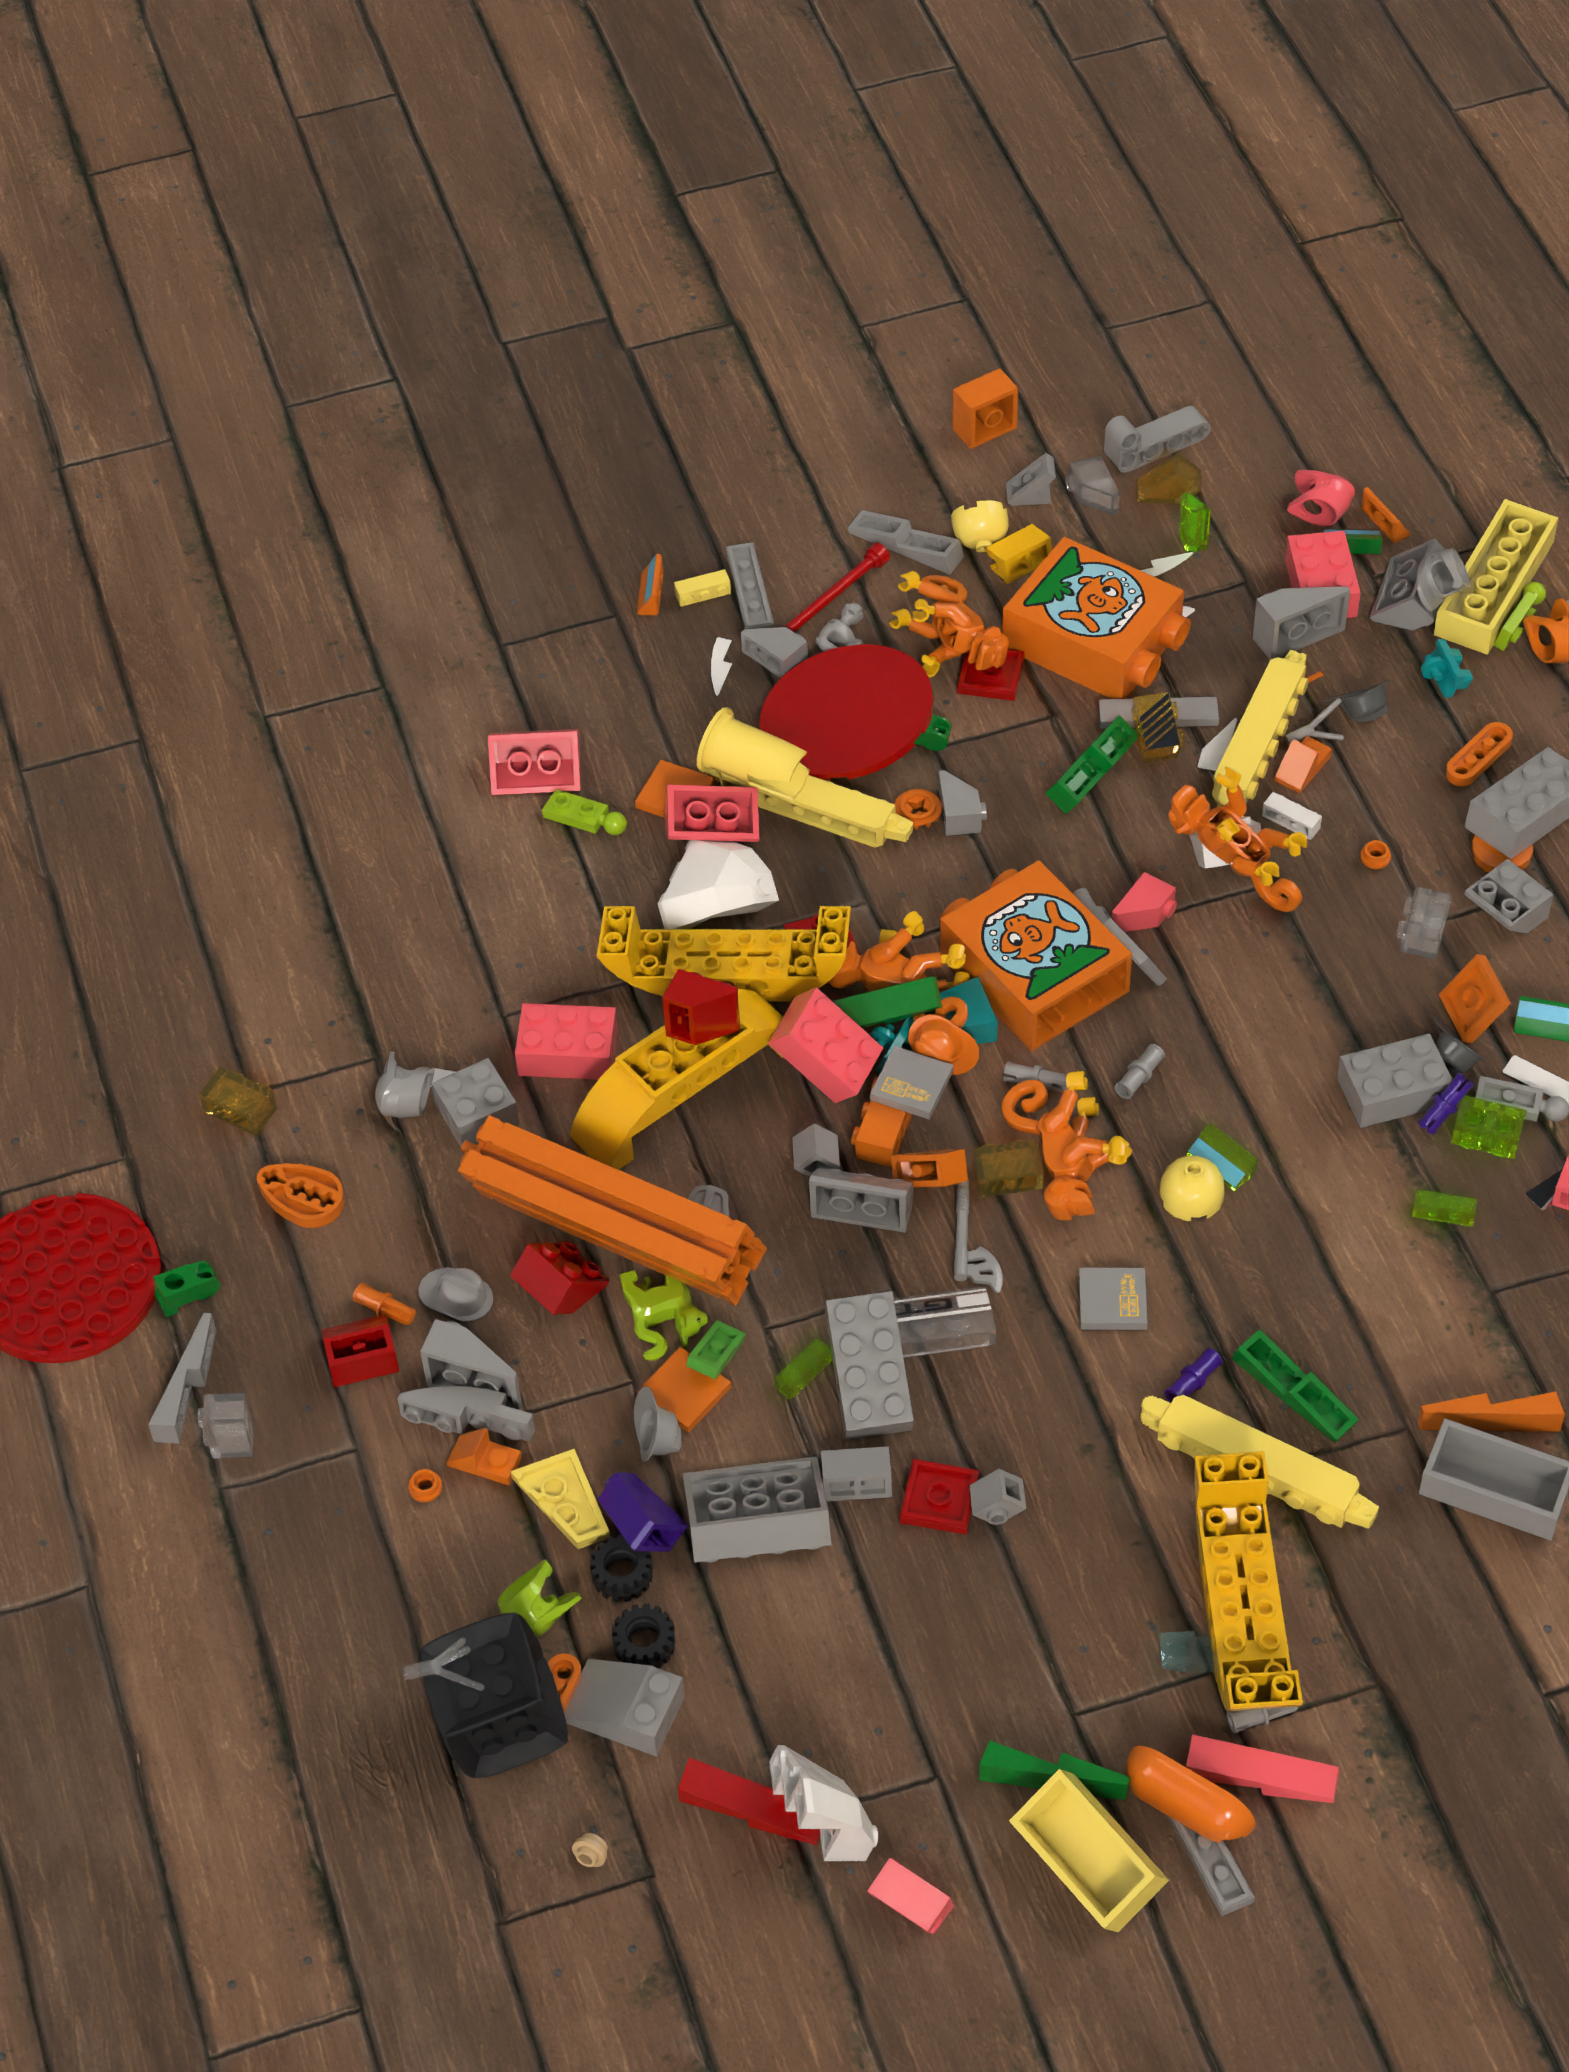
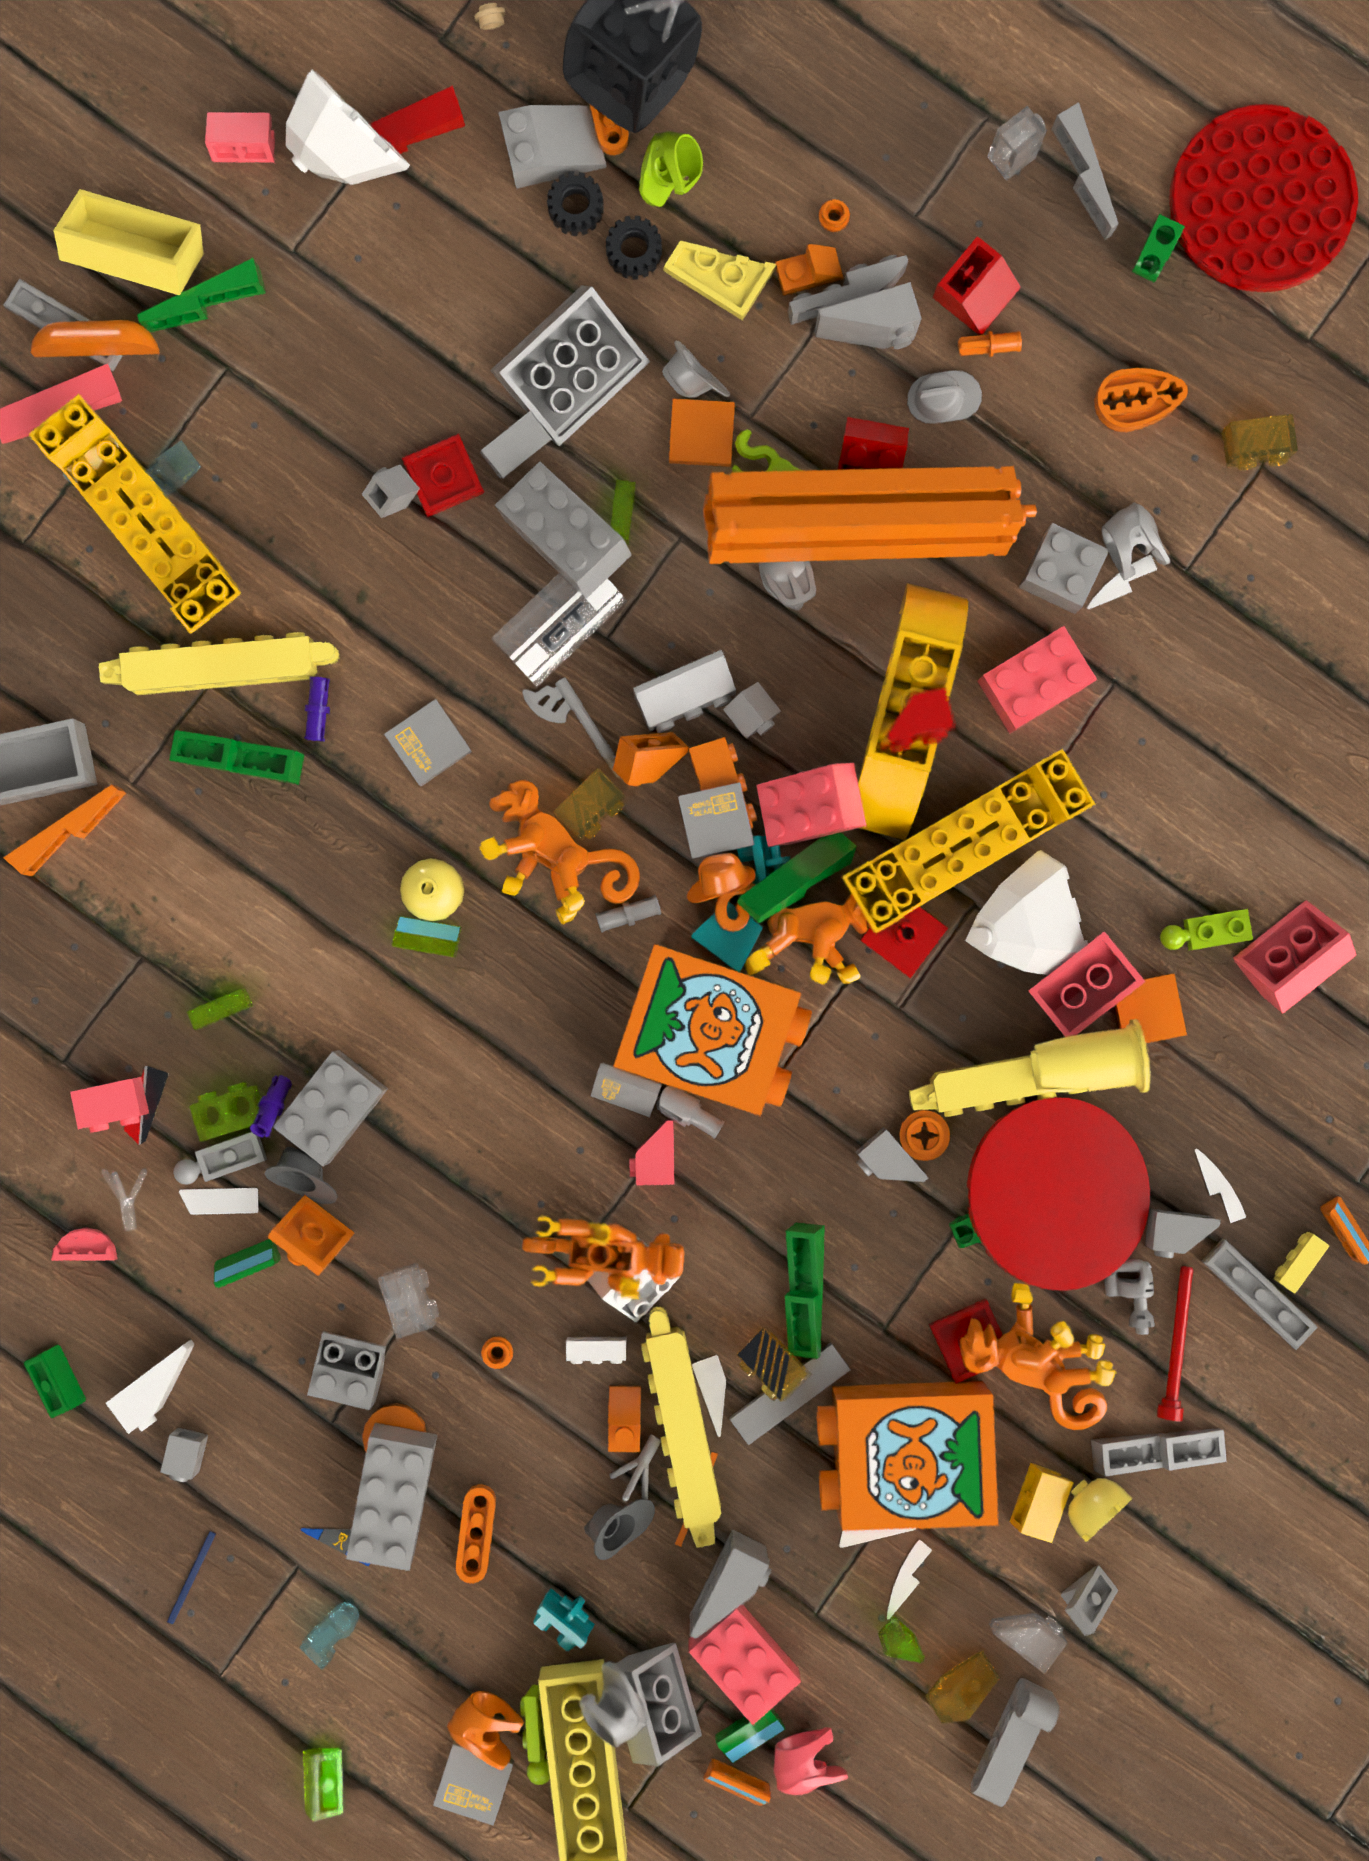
camera: 140 degrees right, 35 degrees up
(641, 1514) = (647, 288): dark purple slope -> none
(716, 1349) = (696, 471): bright green plate -> none
(985, 408) = (1197, 1663): orange brick -> none
(1139, 1071) = (548, 978): light grey pin -> none

